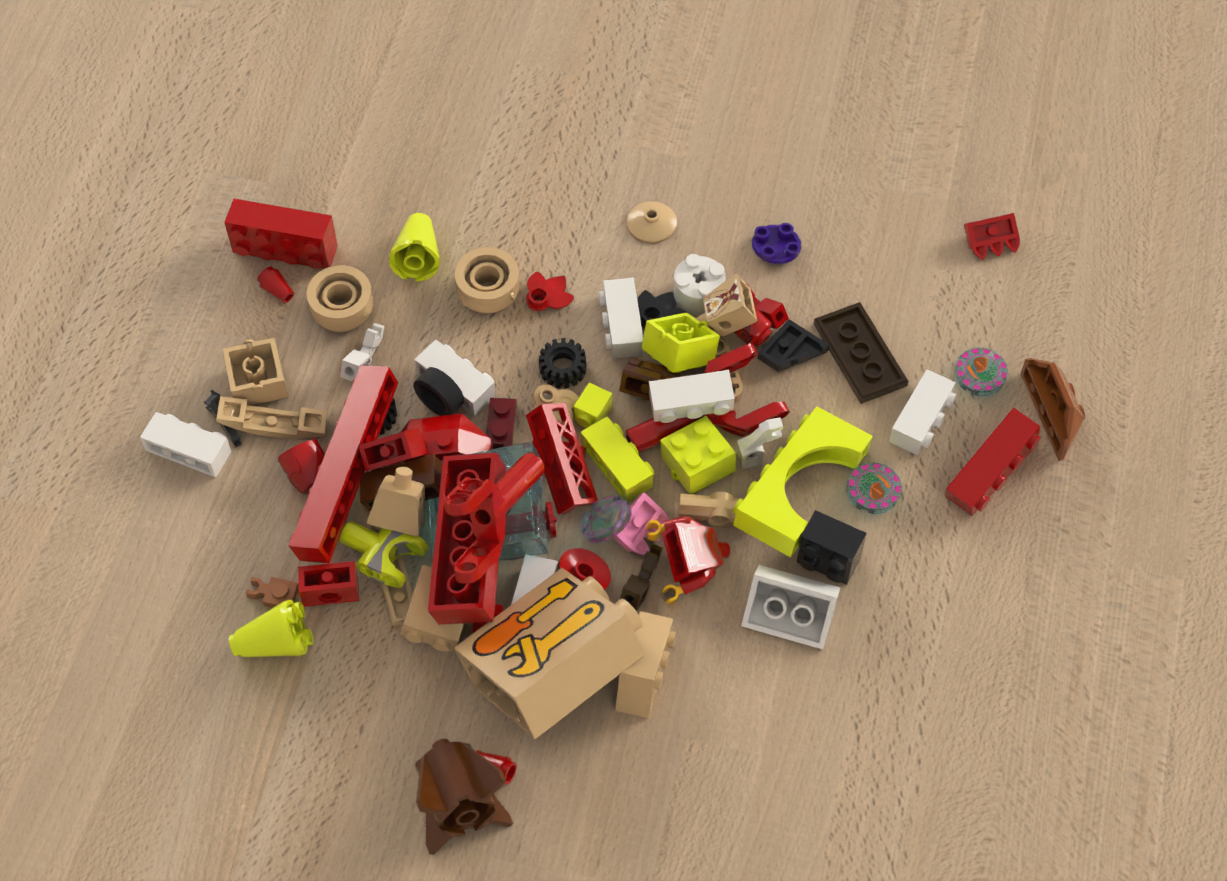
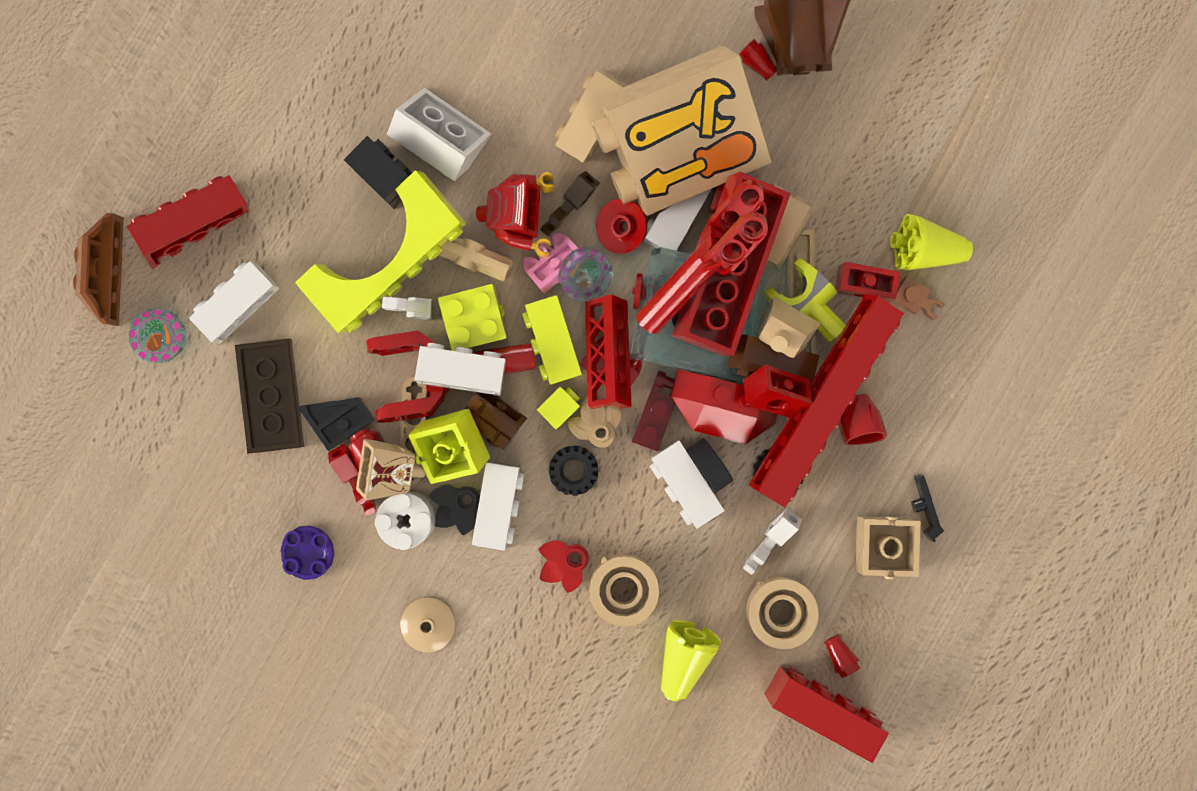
camera: 165 degrees left, 30 degrees up
(186, 444) = (970, 487): white brick -> none
(271, 422) = (881, 489): tan slope -> none
(874, 488) = (313, 237): clear light blue tile -> none
(992, 233) = (77, 494): red plate -> none

